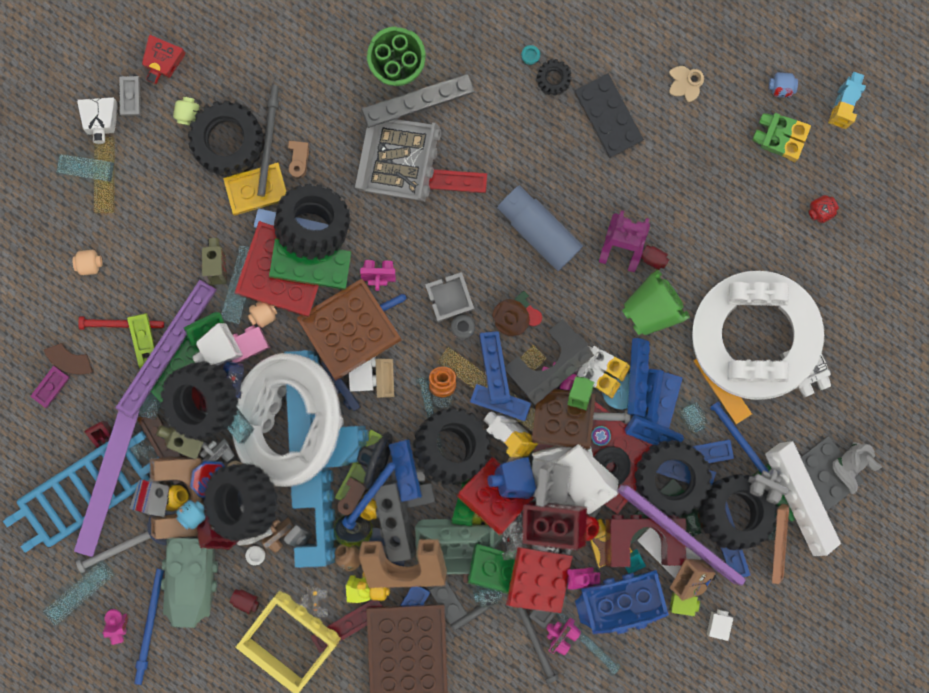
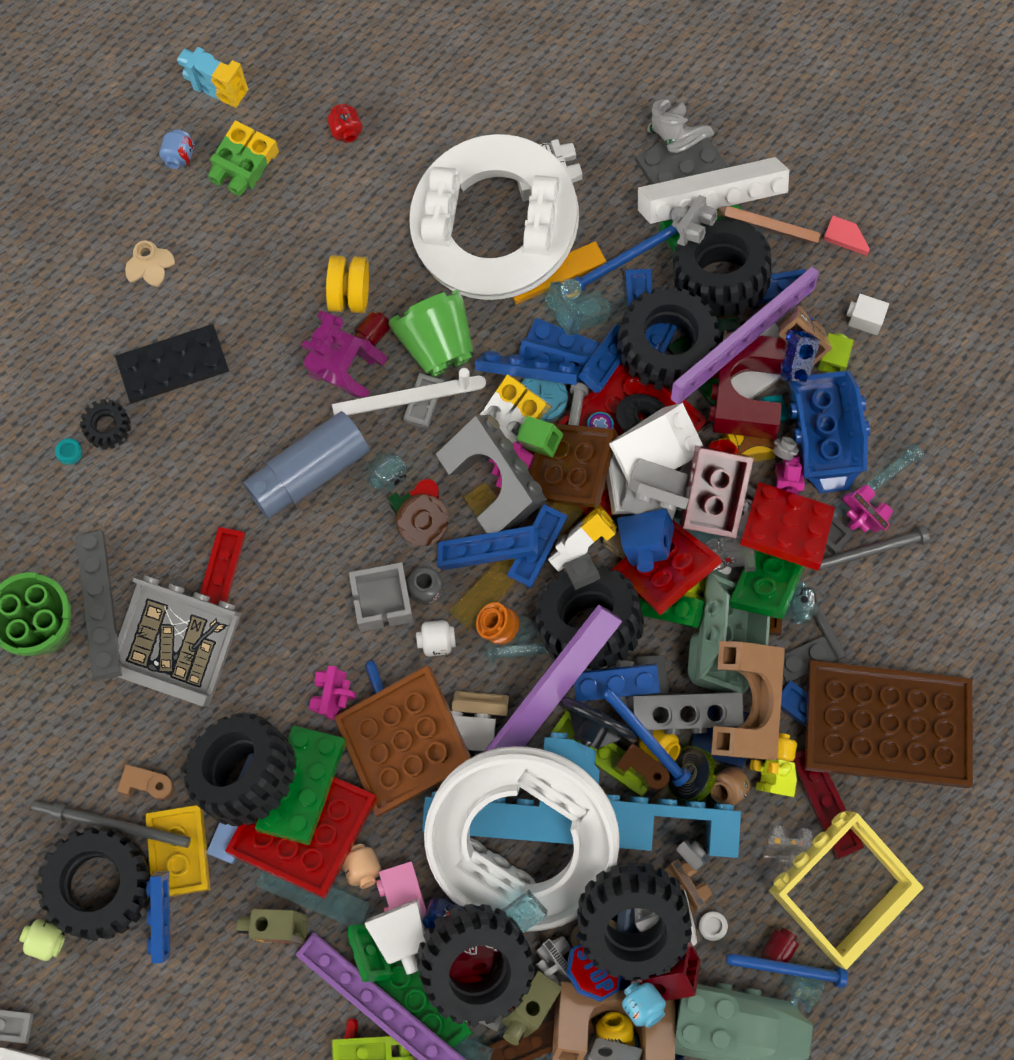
camera: 80 degrees left, 15 degrees down
(209, 185) = (159, 917): none -> blue plate
(222, 622) = (807, 991): none -> clear light blue plate
(232, 642) = (838, 976): none -> blue bar
(390, 425) = (557, 679): none -> medium lavender tile
(427, 340) = (436, 638): none -> white head
(481, 436) = (581, 571): none -> dark grey plate
(545, 286) = (387, 472): none -> clear light blue head
(598, 573) = (785, 448): none -> light grey plate
(604, 304) = (421, 412): none -> light grey plate
(619, 330) = (462, 385): none -> white piece
(670, 576) = (799, 356): none -> clear blue leg
(685, 231) = (347, 284): none -> yellow wheel
(694, 396) = (561, 303): none -> clear light blue plate
(785, 603) = (846, 235): none -> coral tile

